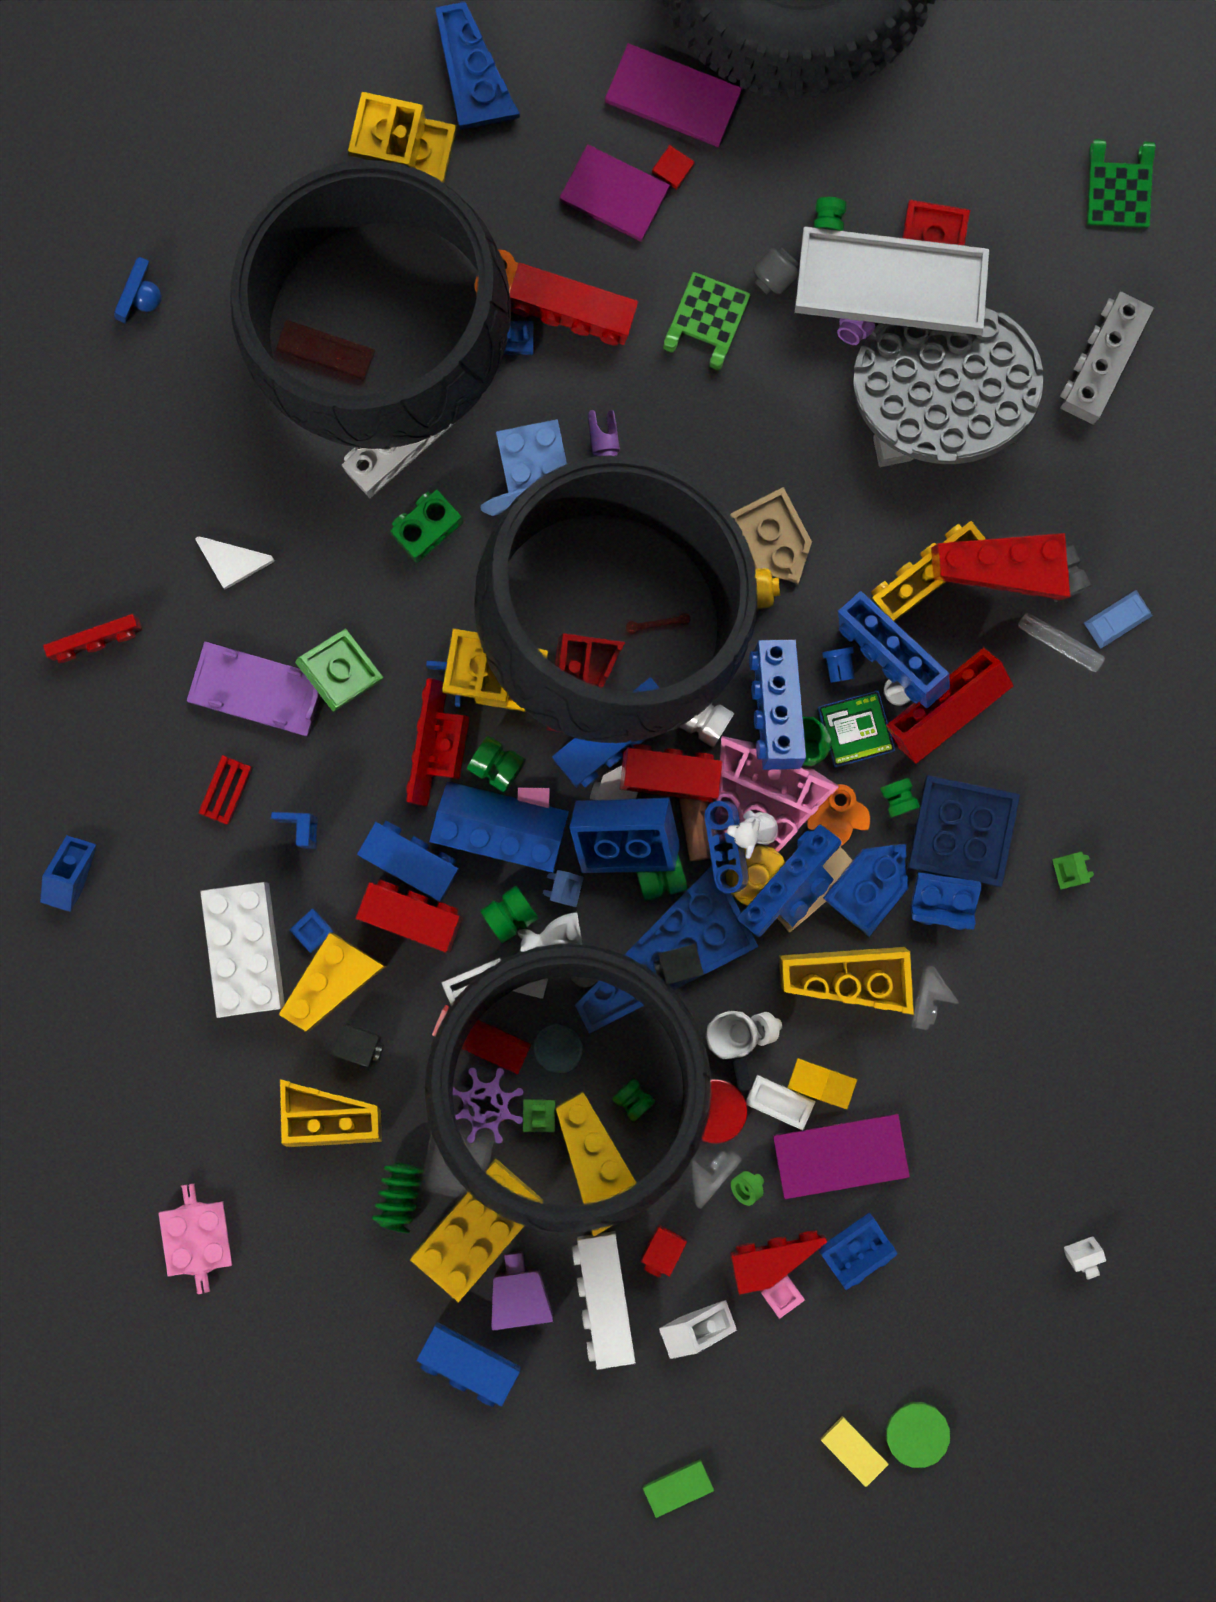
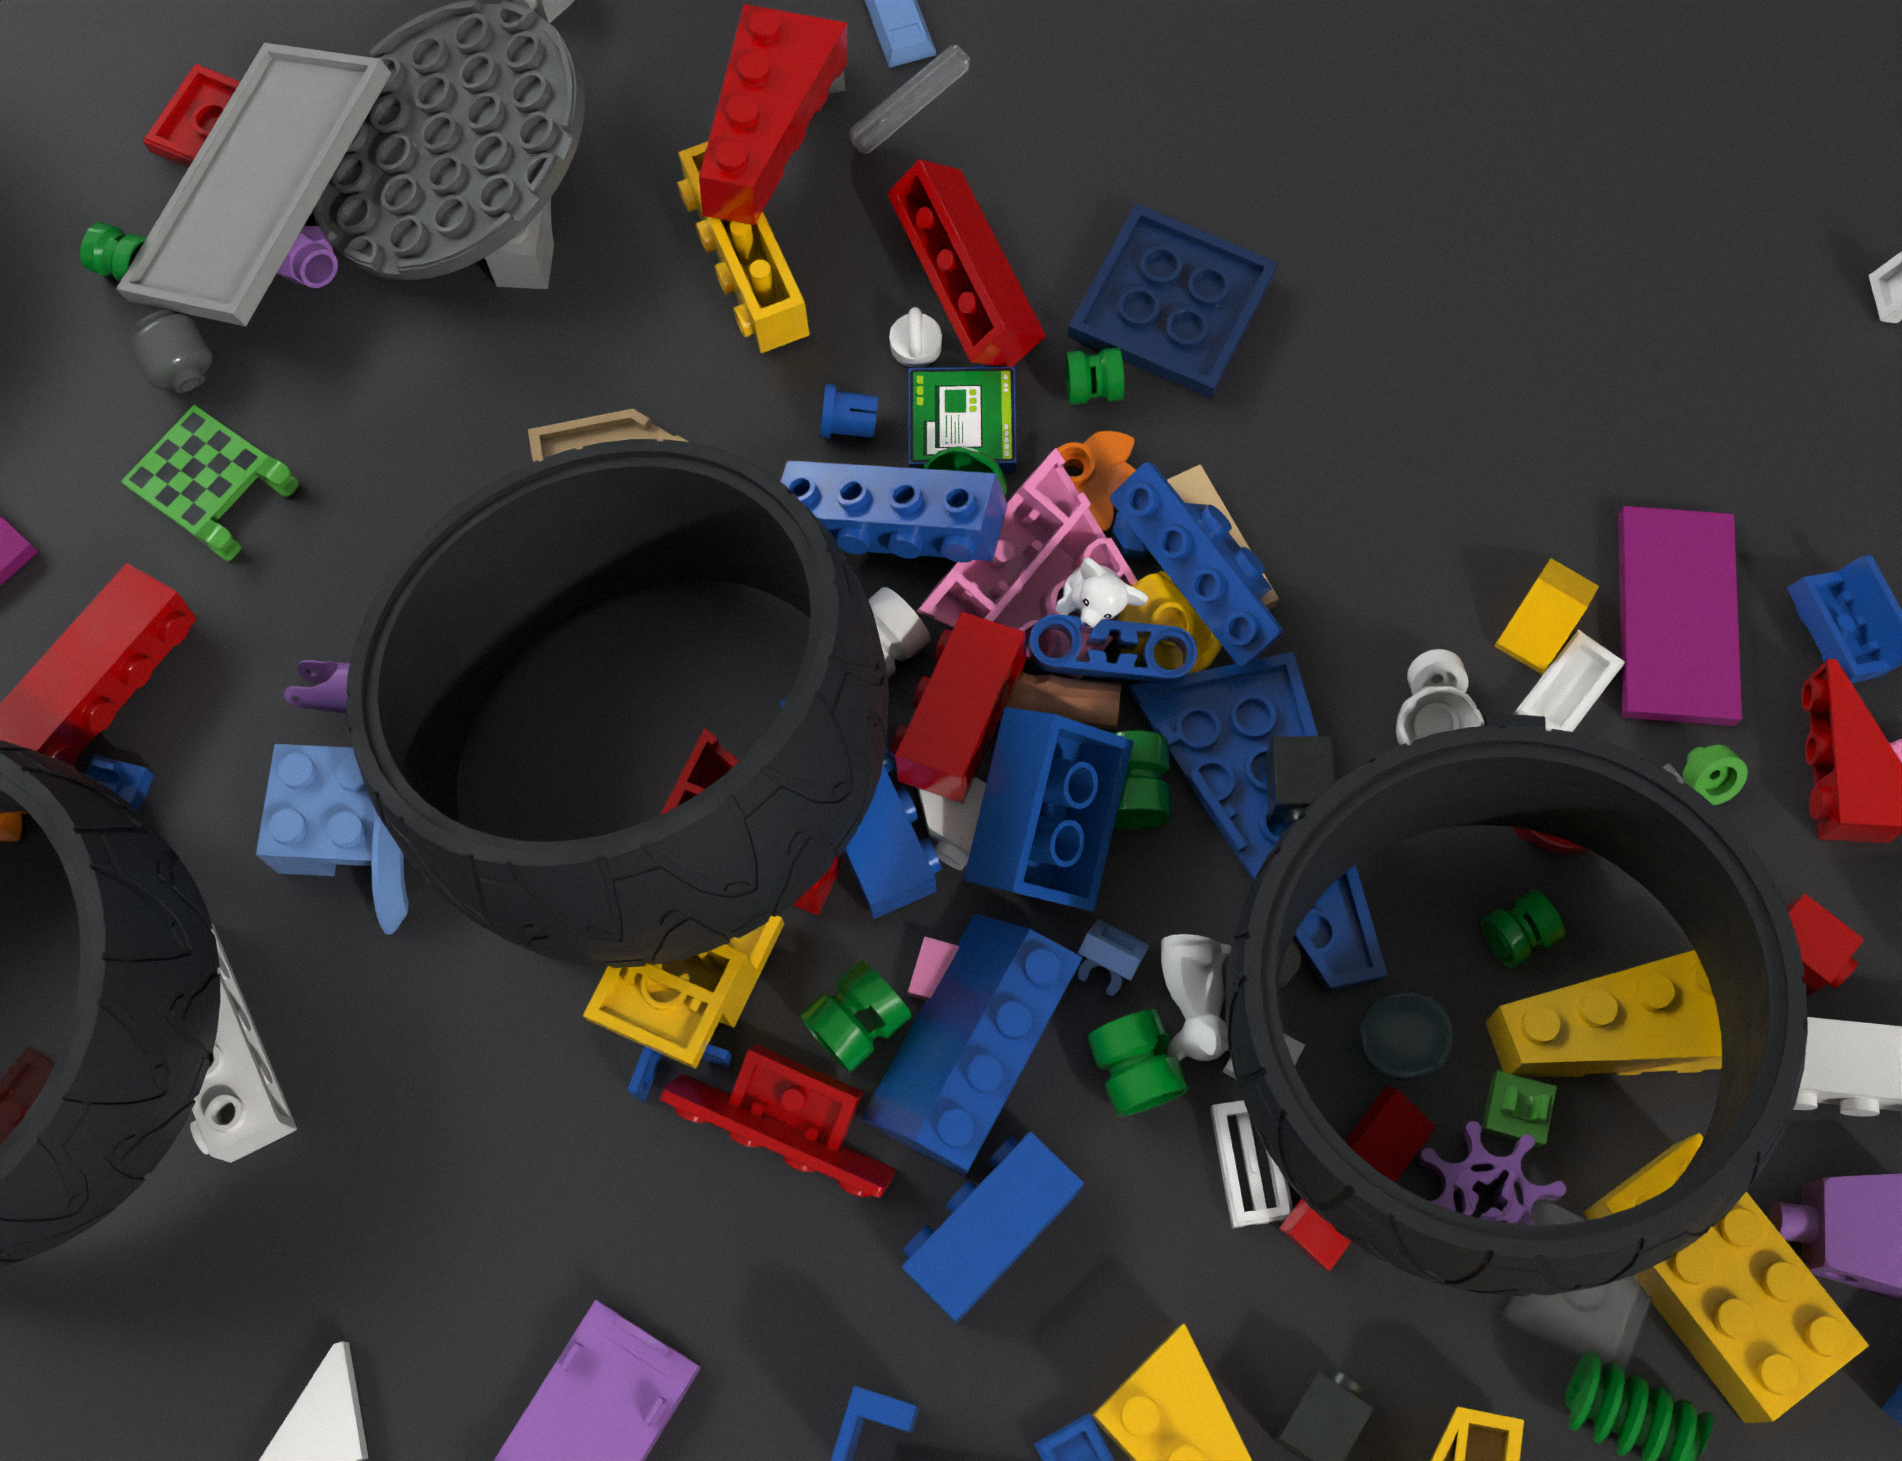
camera: 70 degrees left, 15 degrees down
(339, 669) = (592, 1266): bright green tile -> none
(410, 915) = (1099, 1244): red brick -> none
(432, 531) = (392, 1025): green brick -> none
(632, 627) = (682, 726): clear red hinge -> none
(859, 977) = (1379, 509): yellow wedge -> none
(870, 886) = (1232, 456): blue tile -> none
(893, 649) = (850, 311): blue brick -> none
(931, 988) = (1423, 408): clear slope -> none
(945, 901) = (1281, 350): blue bracket -> none
(1072, 870) = (1275, 162): bright green tile -> none

